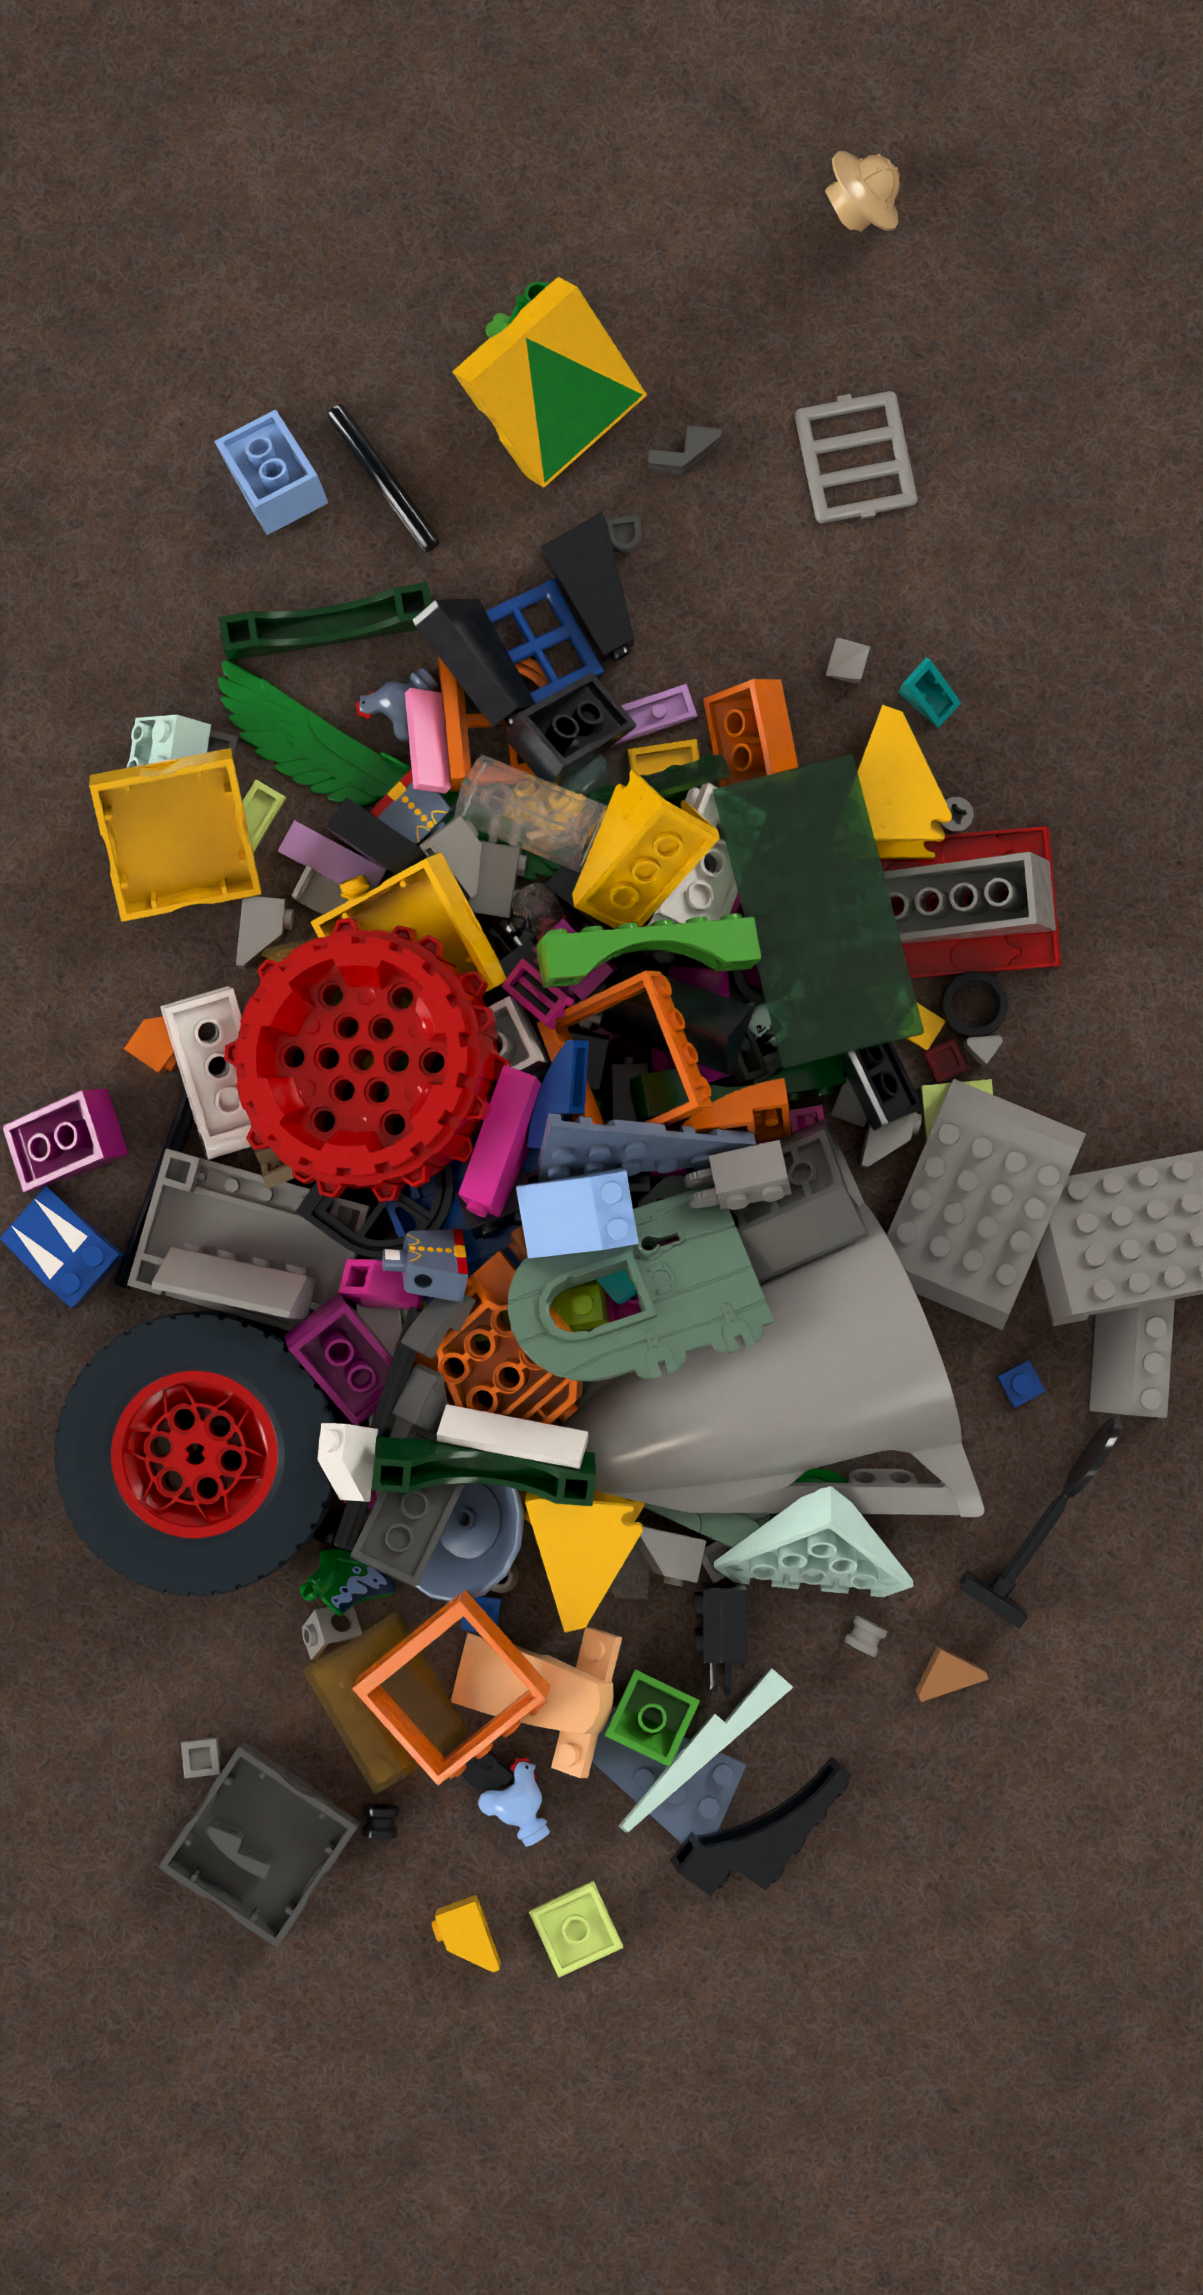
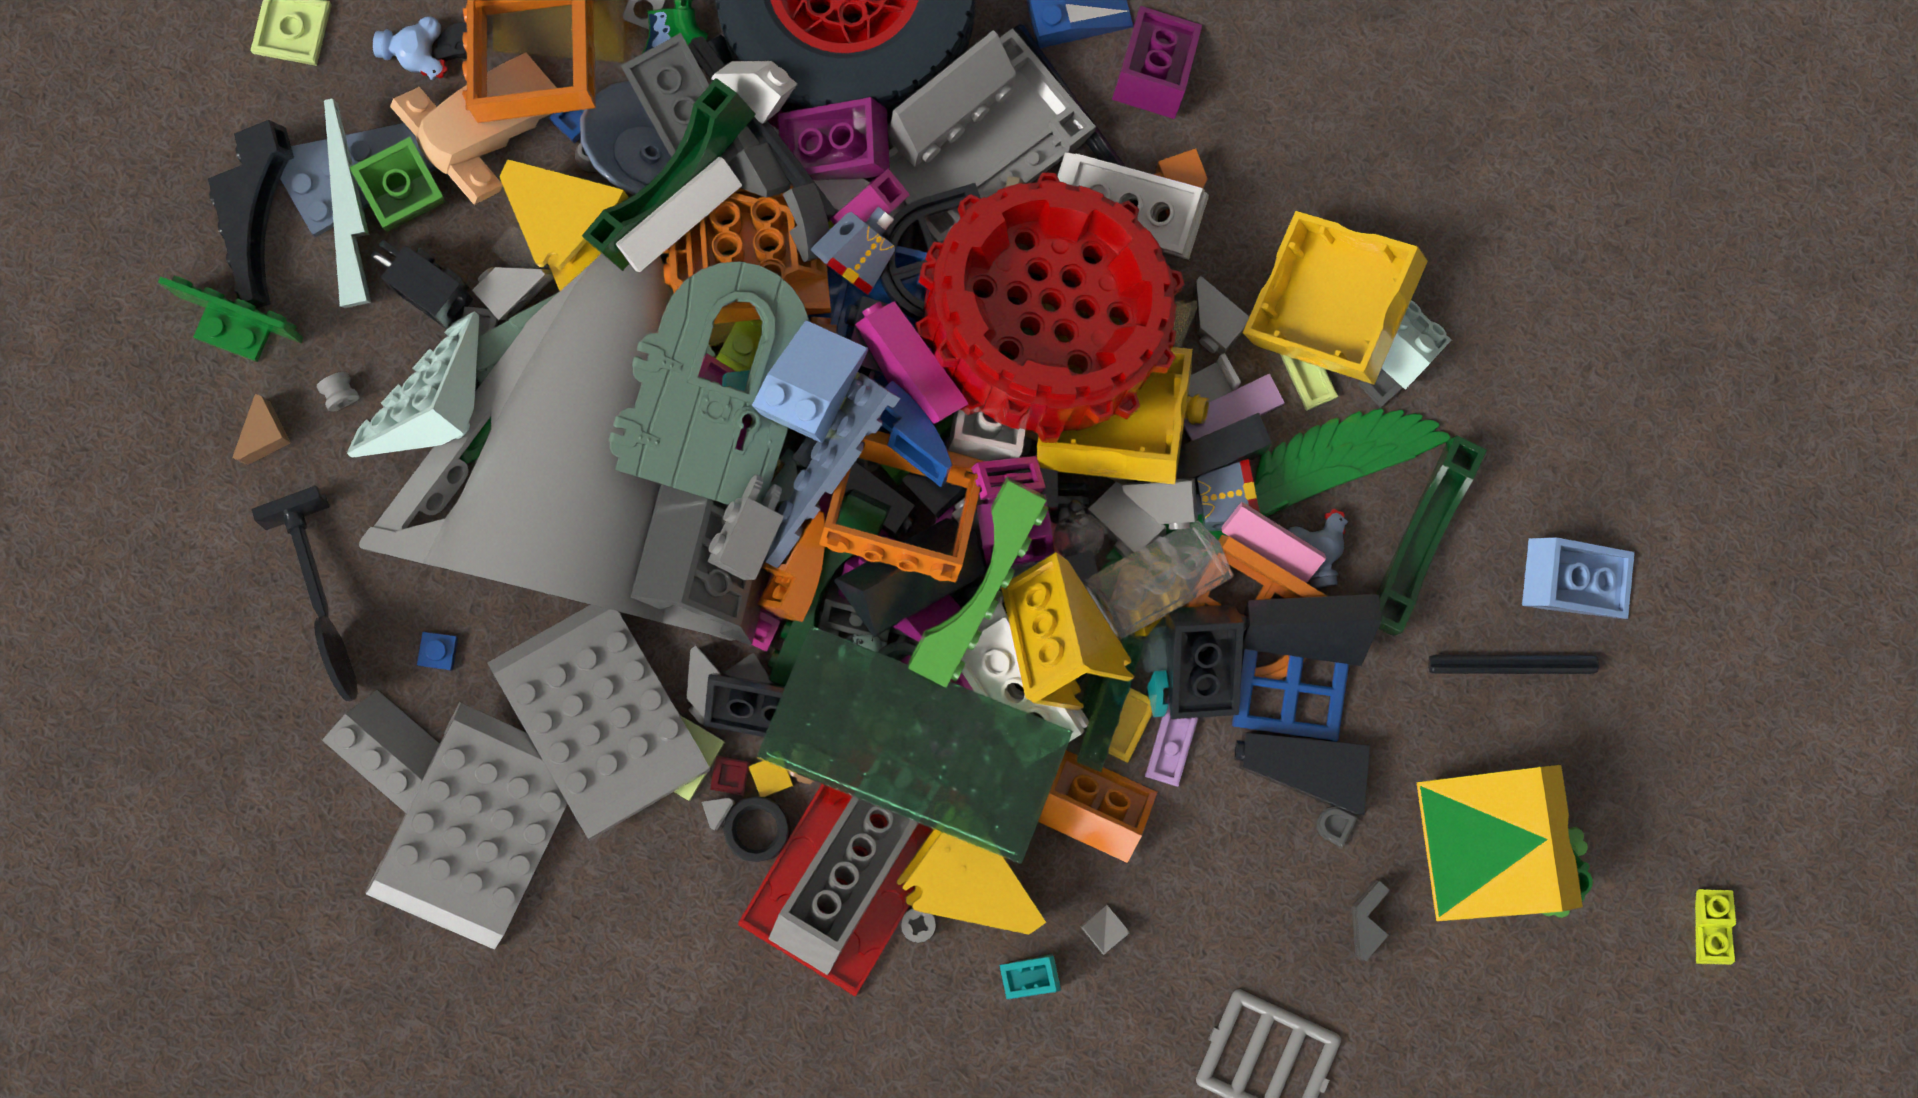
camera: 125 degrees right, 5 degrees down
(486, 171) = (1714, 926): none -> neon yellow slope
(618, 757) = (1155, 691): none -> teal tile
(879, 1771) = (231, 325): none -> green bracket

